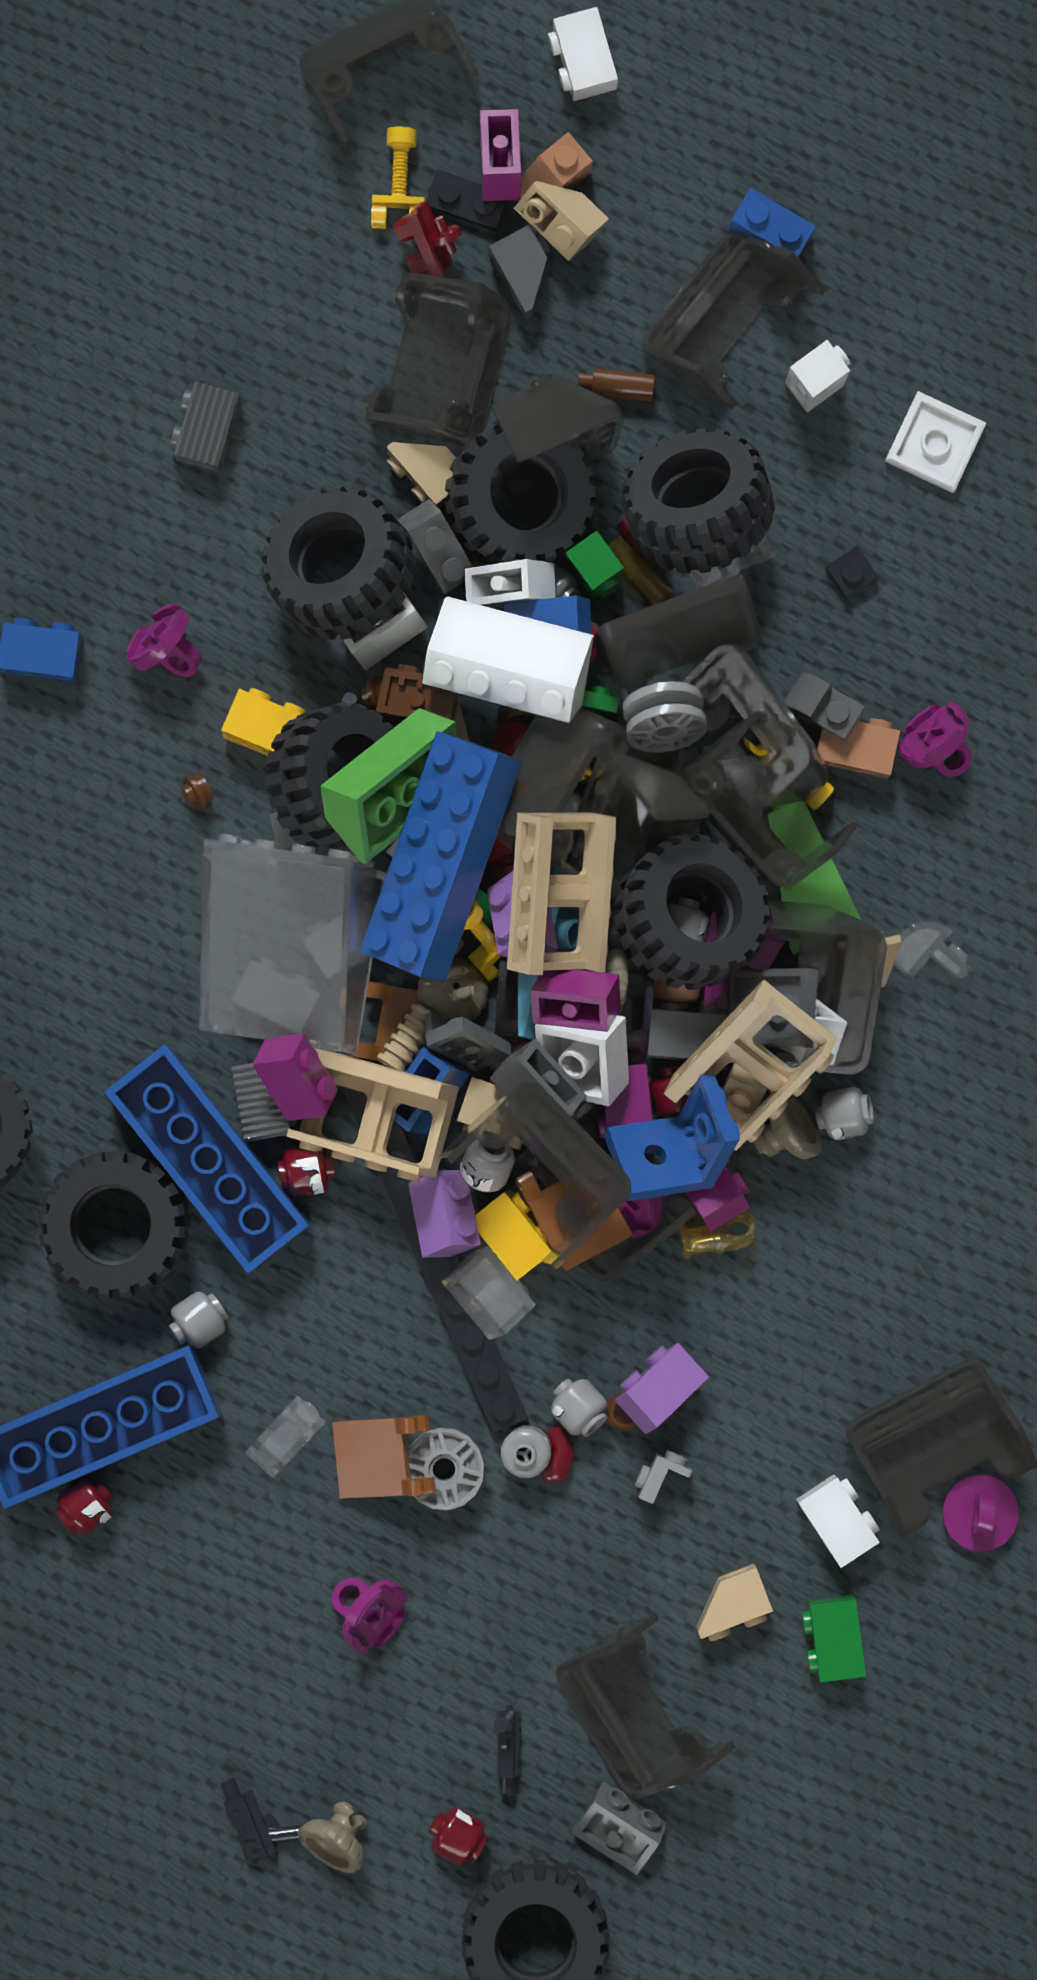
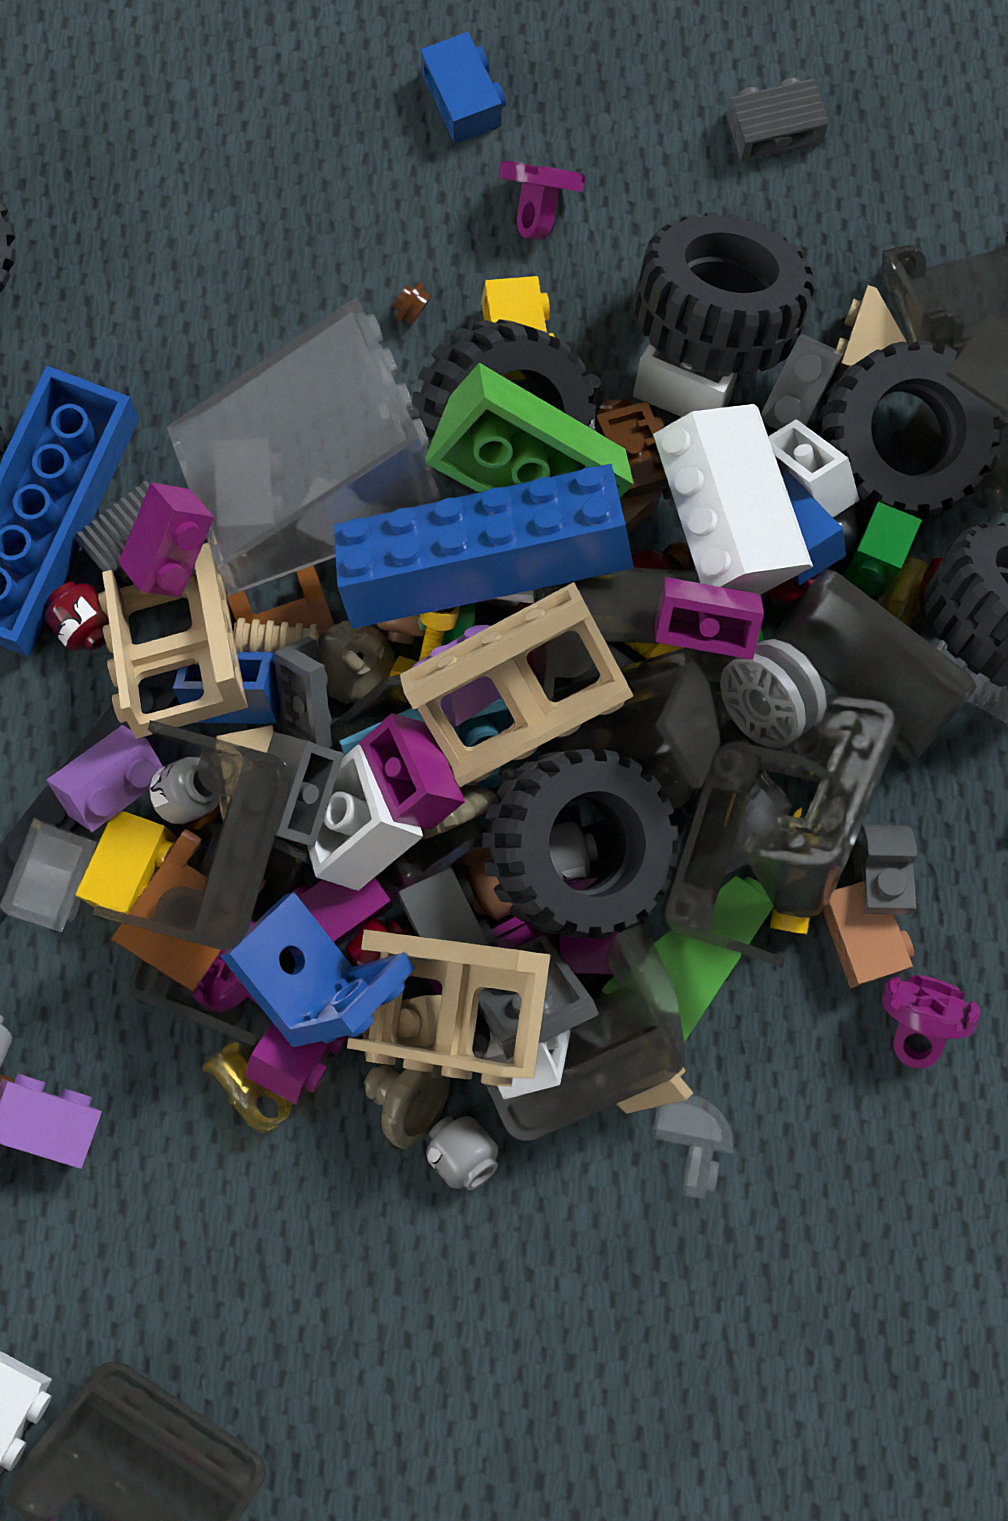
camera: 60 degrees right, 10 degrees down
(591, 733) = (708, 618): none -> magenta brick

